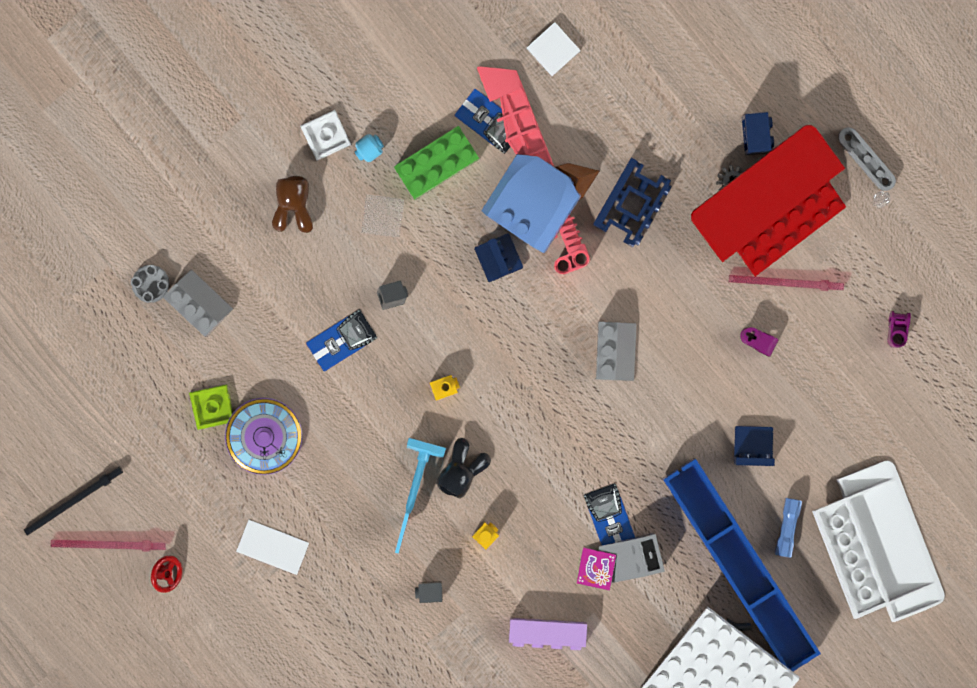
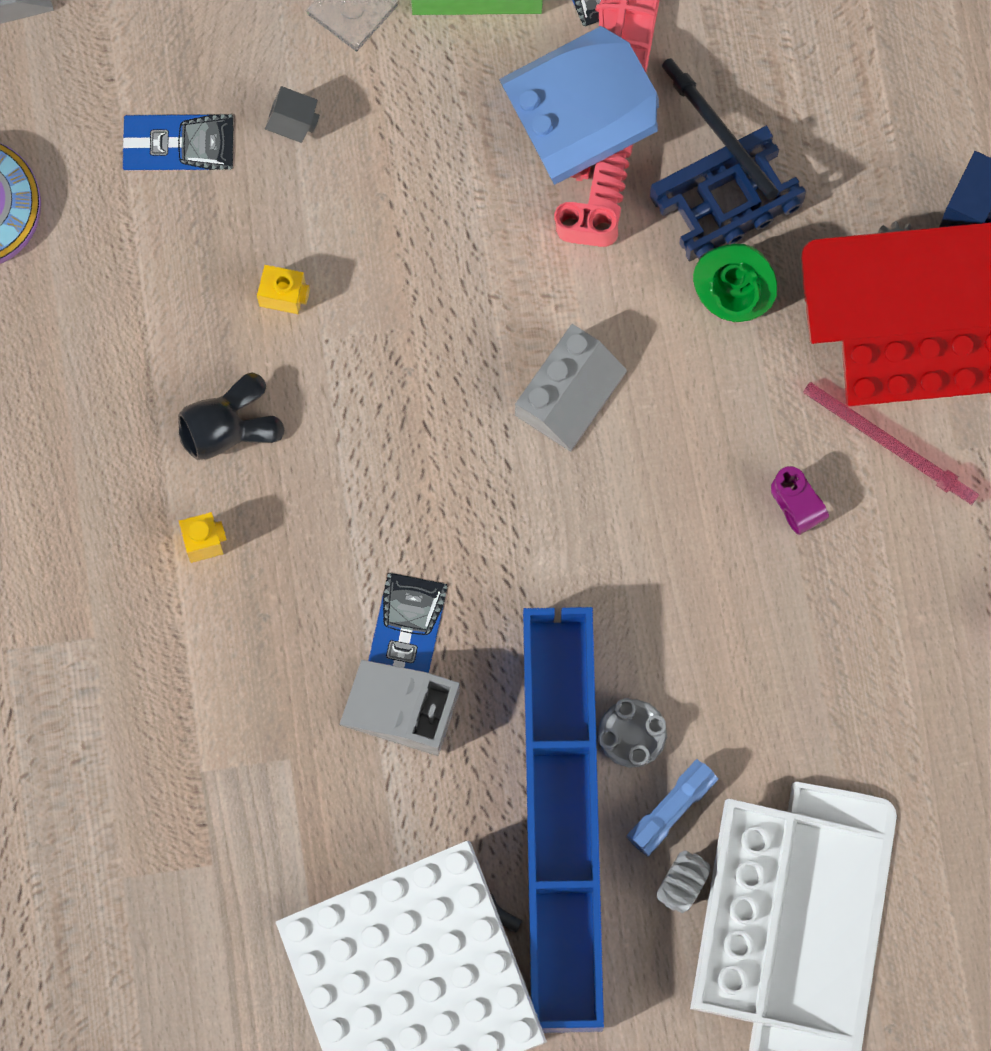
camera: 25 degrees right, 15 degrees down
(425, 450) = (194, 361): medium azure piece -> none
(429, 592) = (62, 569): dark grey brick -> none
(498, 257) = (482, 157): dark blue bracket -> none
(547, 632) = (200, 741): lavender brick -> none
(577, 157) = (687, 87): none -> black bar
(581, 176) = (673, 121): dark orange slope -> none
(596, 569) = (336, 690): dark pink sticker -> none
(664, 249) = (735, 282): none -> green hat
(748, 503) = (632, 733): none -> light grey dish
(753, 446) = (693, 652): dark blue bracket -> none
(815, 561) = (683, 881): none -> light grey gear

